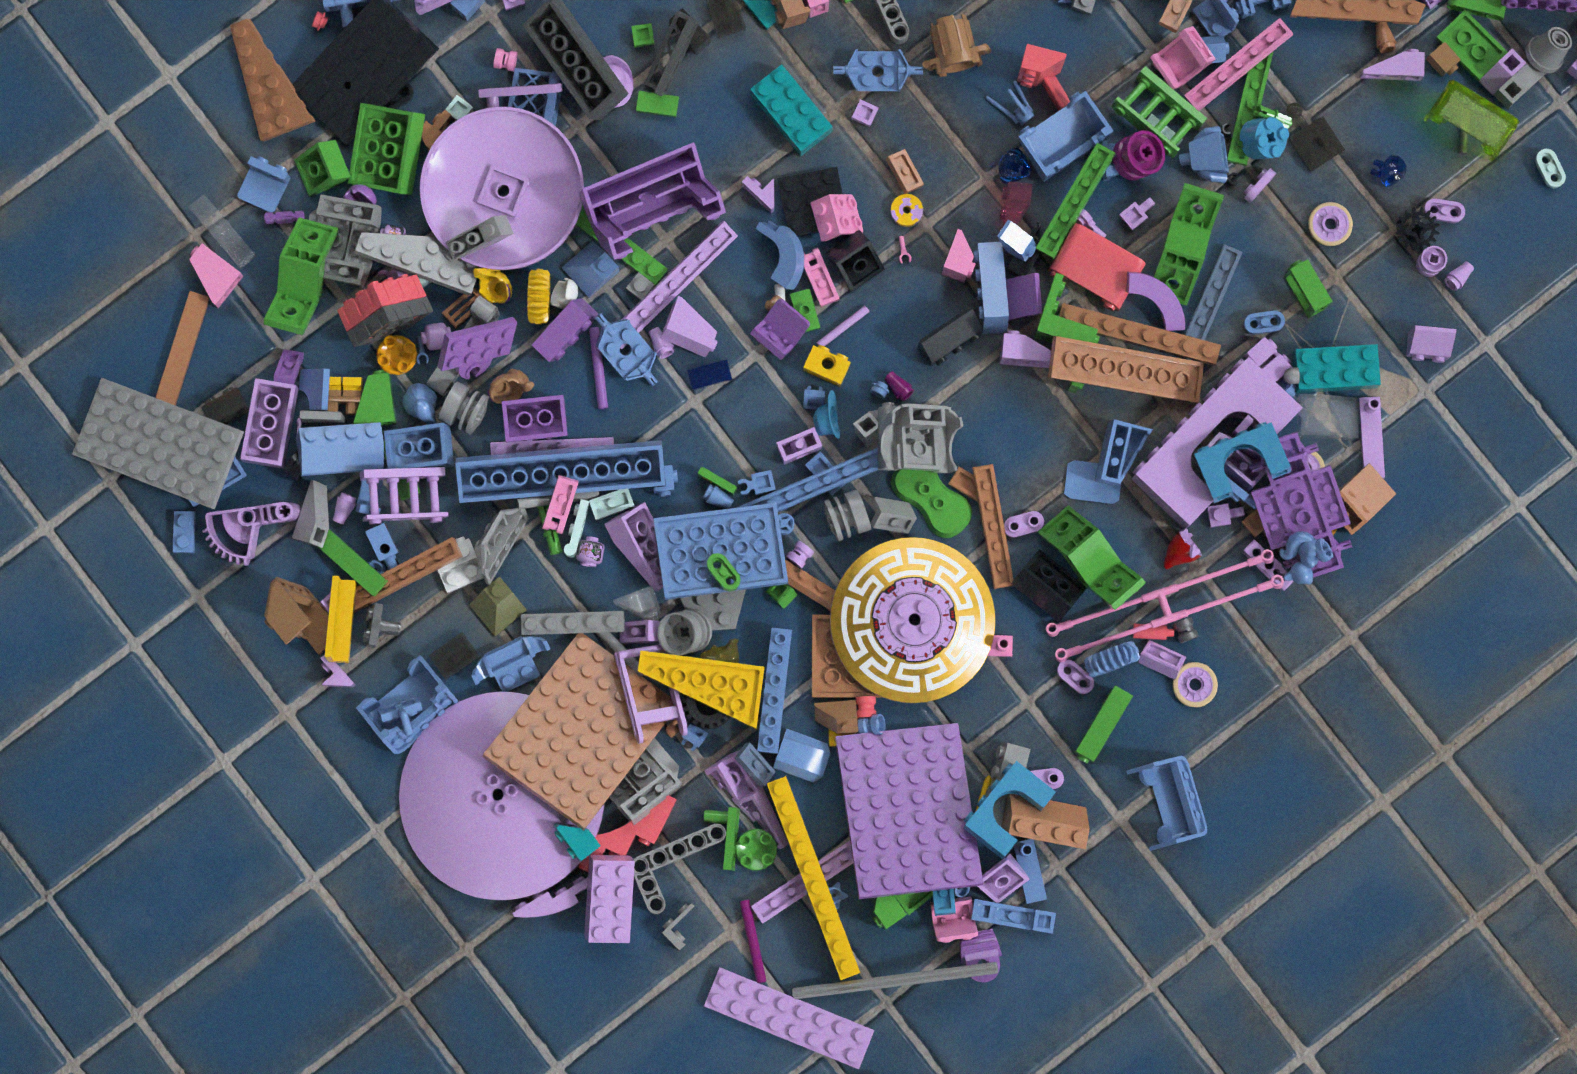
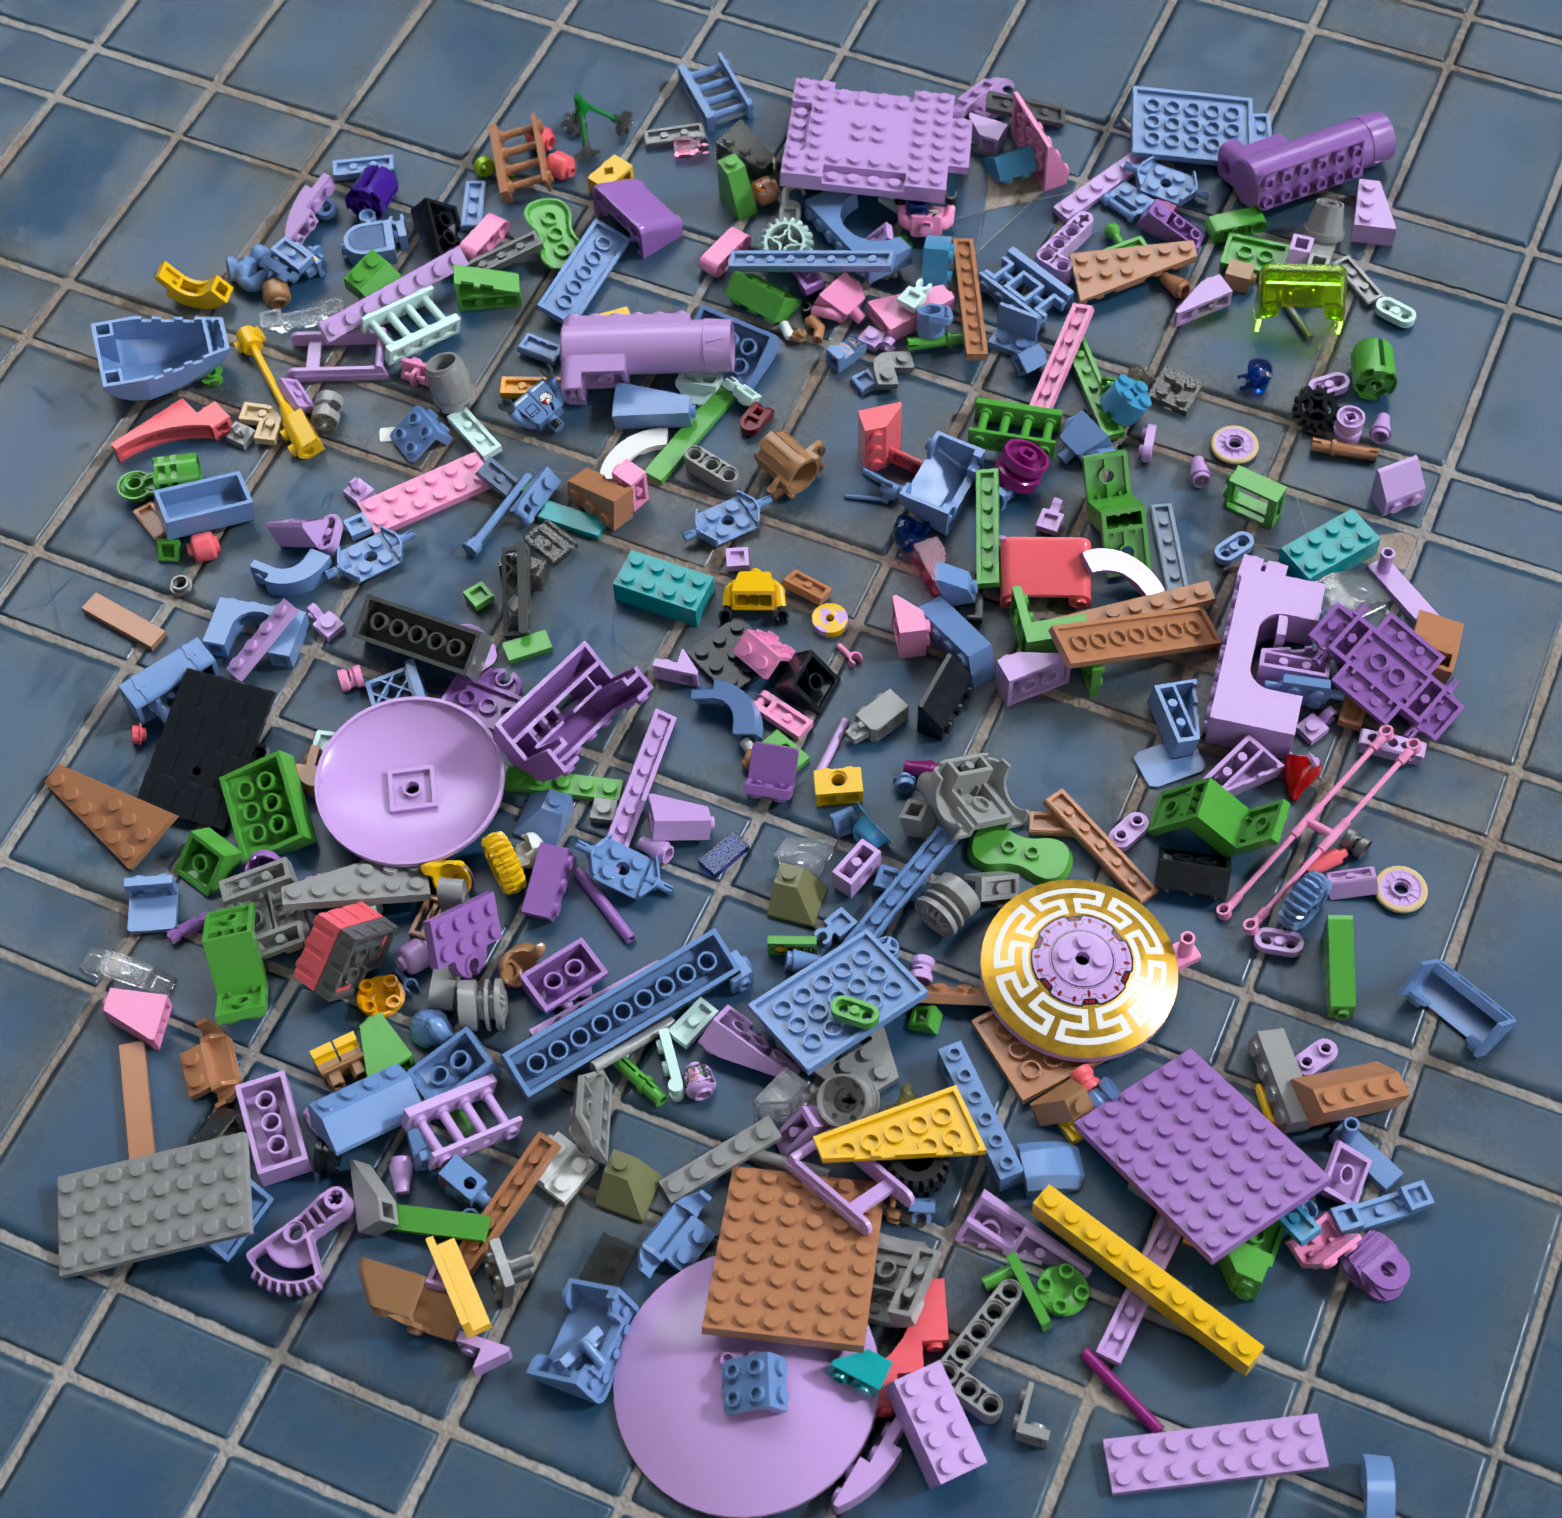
camera: 20 degrees left, 25 degrees down
(184, 532) = (230, 1294): medium blue plate -> none
(249, 346) = (211, 1065): none -> nougat plate
(288, 366) = (266, 1061): medium lavender plate -> none
(316, 387) = (307, 1064): medium blue tile -> none
(322, 418) = (328, 1085): light grey tile -> none
(480, 236) = (410, 830): light grey slope -> none
(492, 93) = (382, 690): lavender piece -> none
(500, 810) = (755, 1383): none -> medium blue bracket
(560, 503) = (639, 1042): bright pink plate -> none
(600, 142) = (485, 697): none -> medium lavender plate
(743, 442) = (796, 896): none -> olive slope
(754, 764) = (1006, 1196): sand blue plate -> none
(771, 409) = (806, 853): none -> clear wing
(859, 155) = (754, 591): none -> yellow torso
(890, 323) = (878, 718): none -> light grey hinge
(895, 980) = (1304, 1341): light grey axle -> none
(1016, 781) = (1289, 1116): dark azure arch -> none
(1024, 296) = (996, 628): medium lavender tile -> none
(1136, 523) = (1246, 767): none -> lavender wedge
(1182, 58) = (1008, 374): bright pink panel -> none
(1261, 439) = (1309, 622): dark azure arch -> none
(1282, 238) = (1199, 474): none -> lavender cone
(1292, 375) = (1295, 569): light grey hinge -> none
(1310, 552) = (1425, 699): medium blue animal -> none
(1415, 279) = (1344, 449): none -> nougat pin
(1489, 217) = (1373, 368): none -> bright green cylinder
(1542, 118) = (1359, 282): none -> flat silver tile

